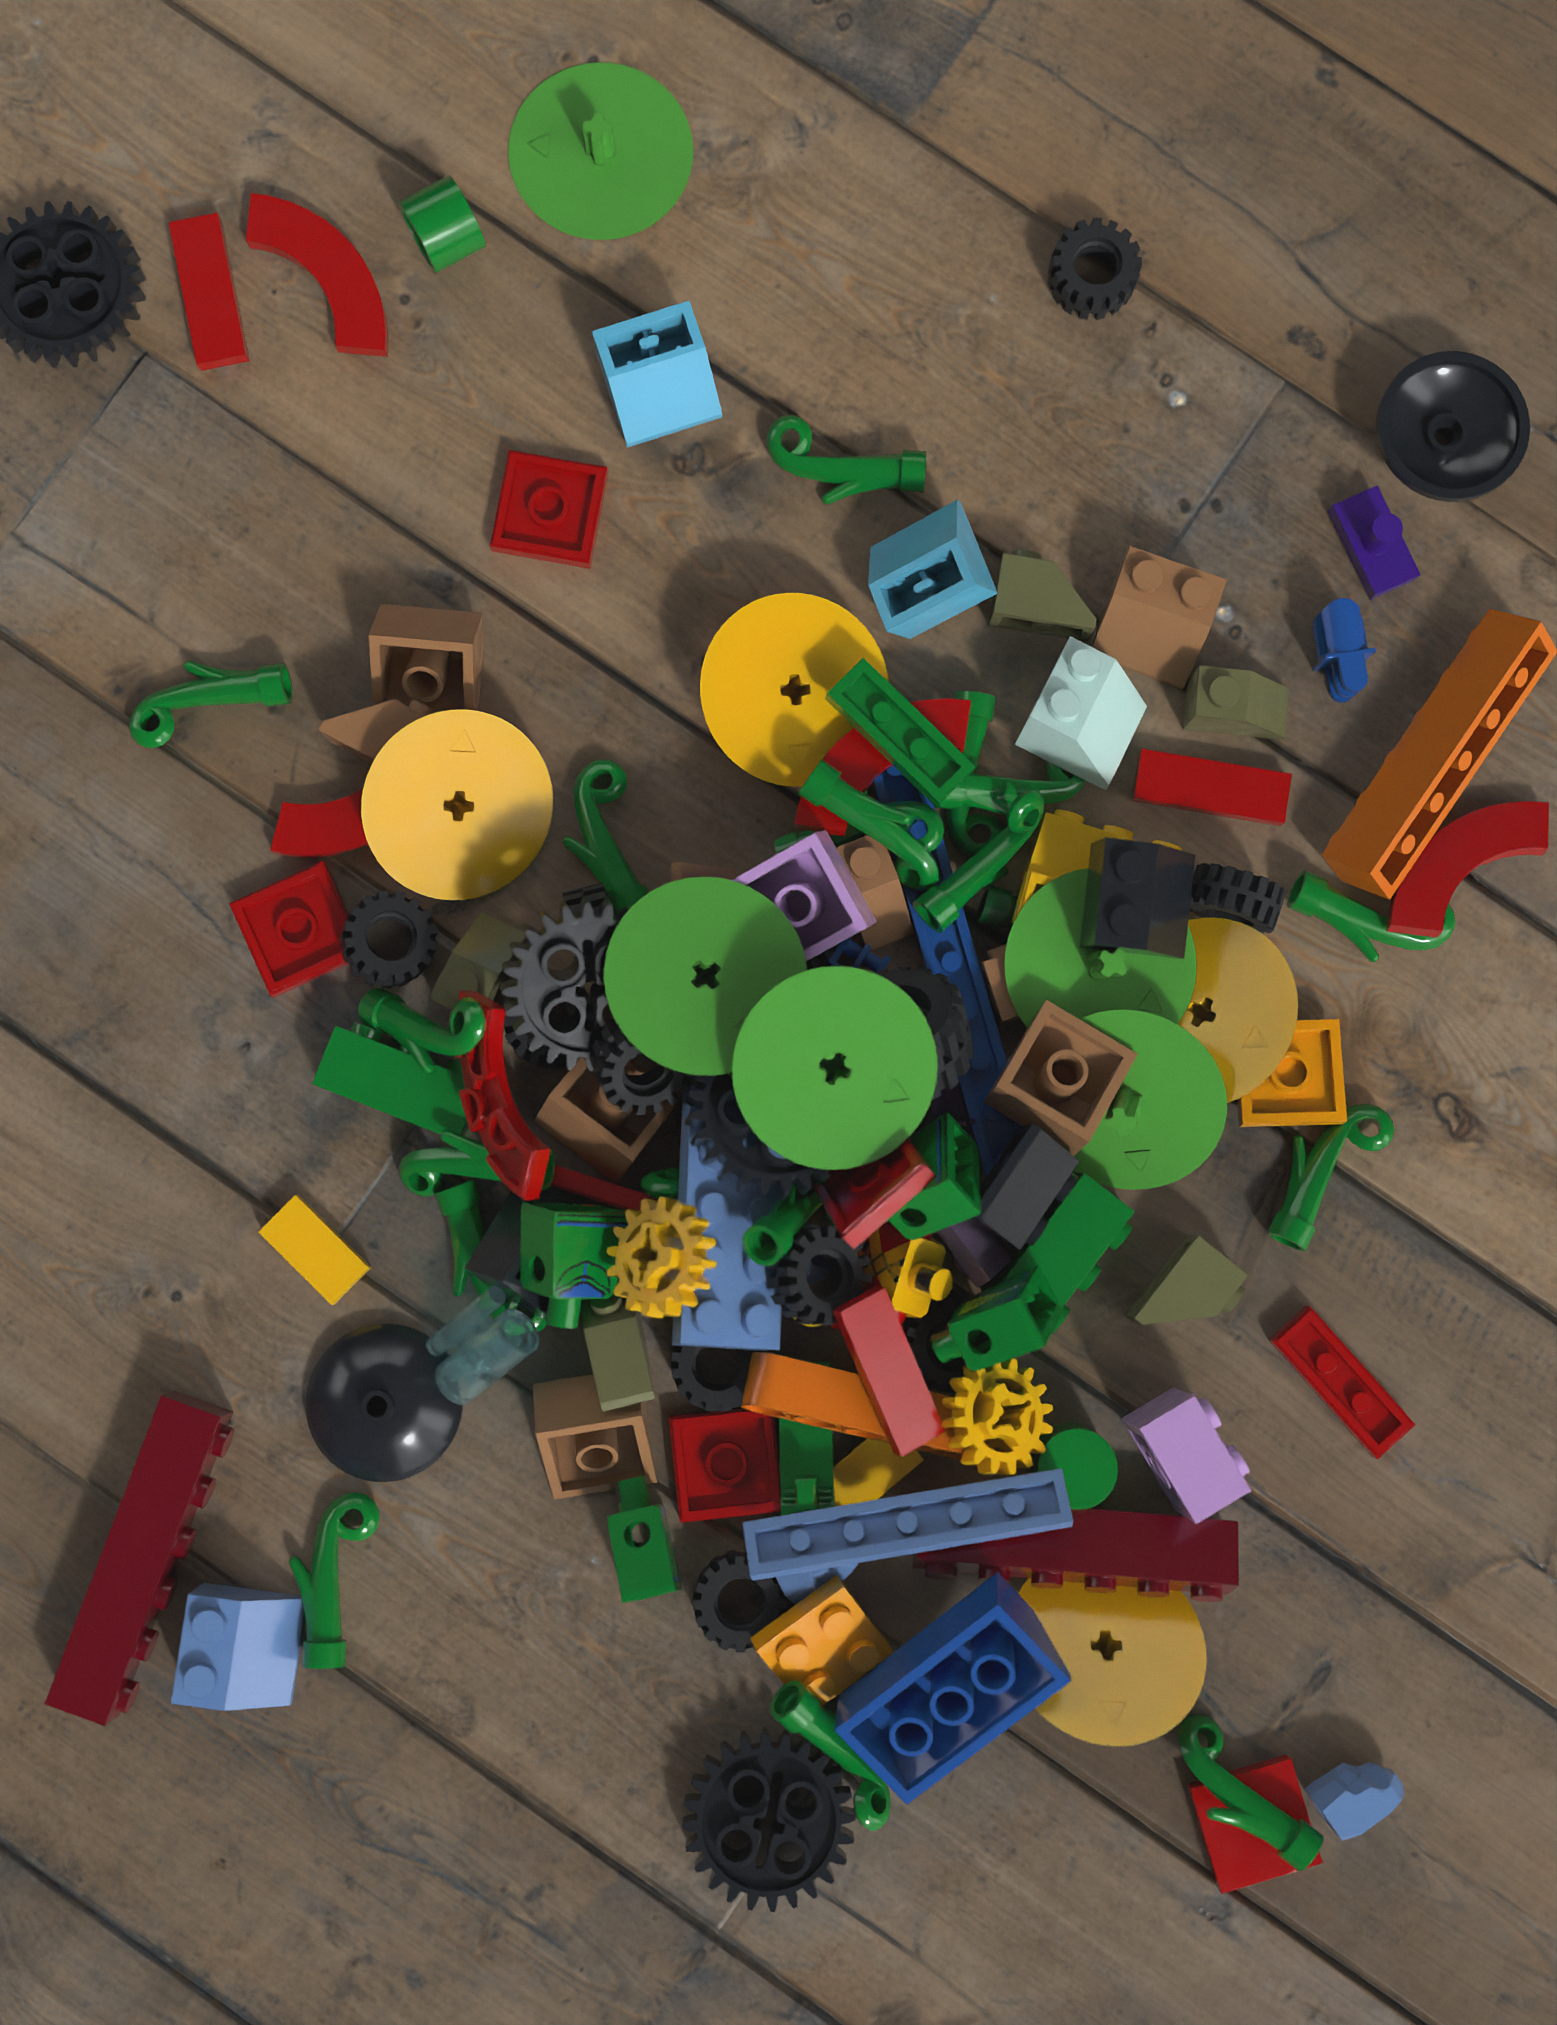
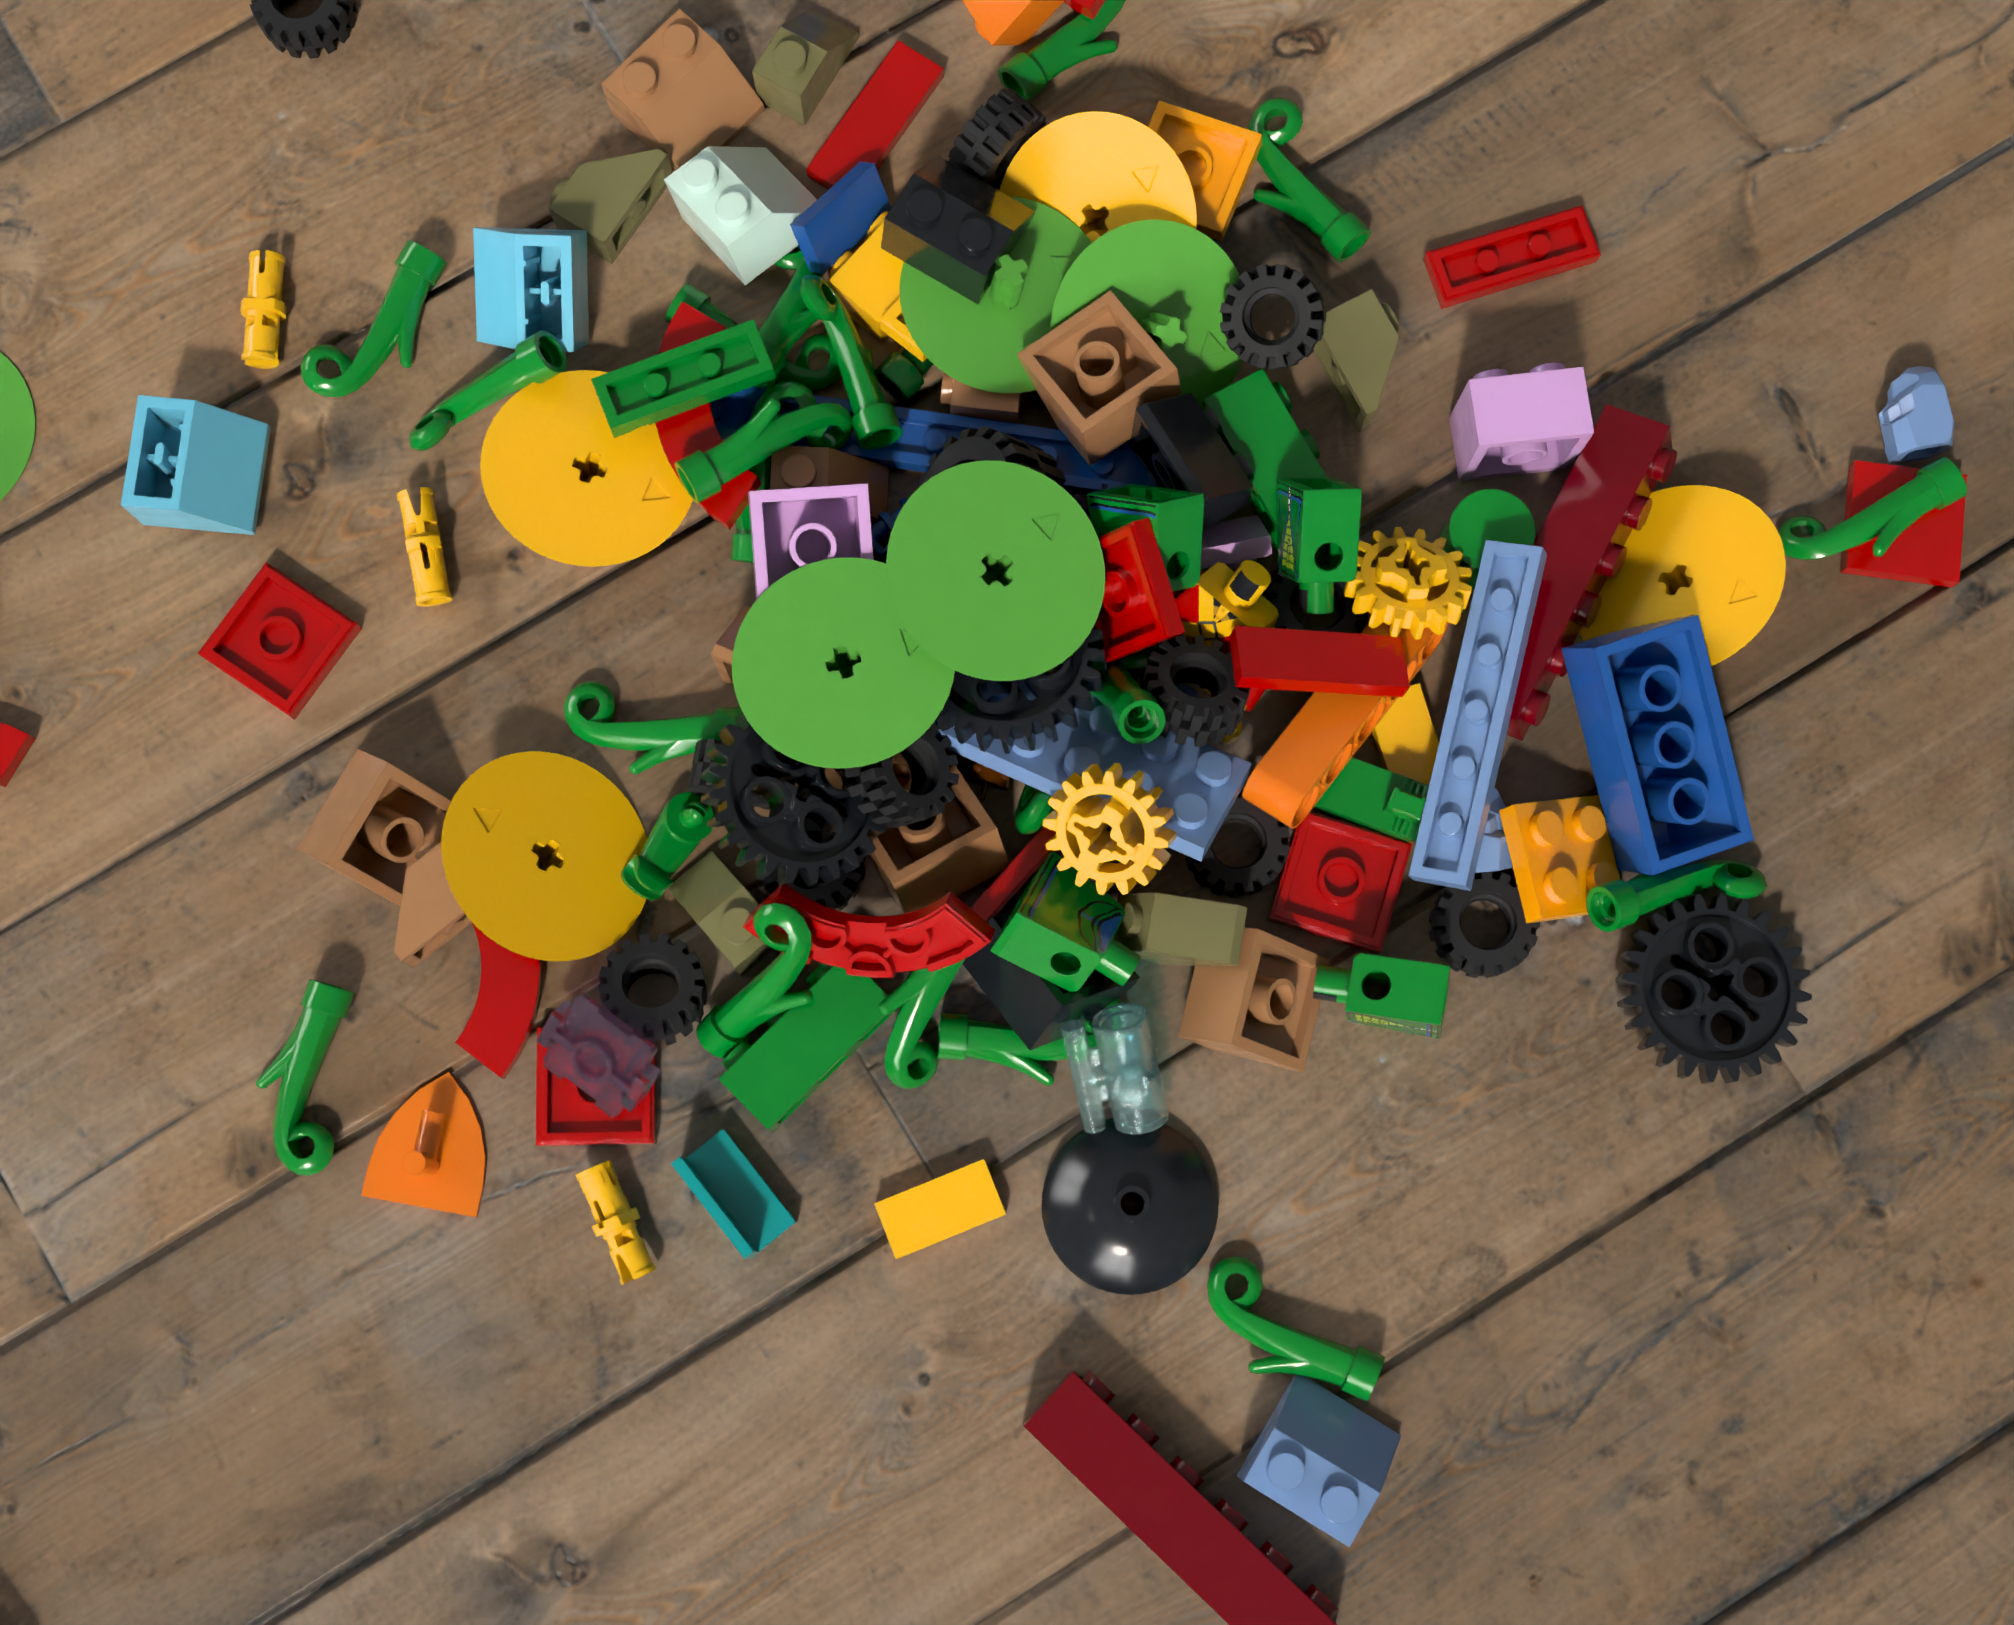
camera: 60 degrees left, 5 degrees down
(191, 823) = (431, 1152): none -> orange shield
(194, 995) = (615, 1221): none -> yellow pin
(253, 1079) = (735, 1194): none -> teal panel
(314, 921) = (599, 1054): none -> clear purple piece
(512, 896) = (670, 843): none -> green piece
(680, 582) = (424, 536): none -> yellow pin
(817, 363) = (263, 309): none -> yellow pin
(860, 602) = (534, 360): none -> green plant
(1108, 797) = (840, 217): none -> blue tile
(1148, 1201) = (1238, 310): none -> black tyre

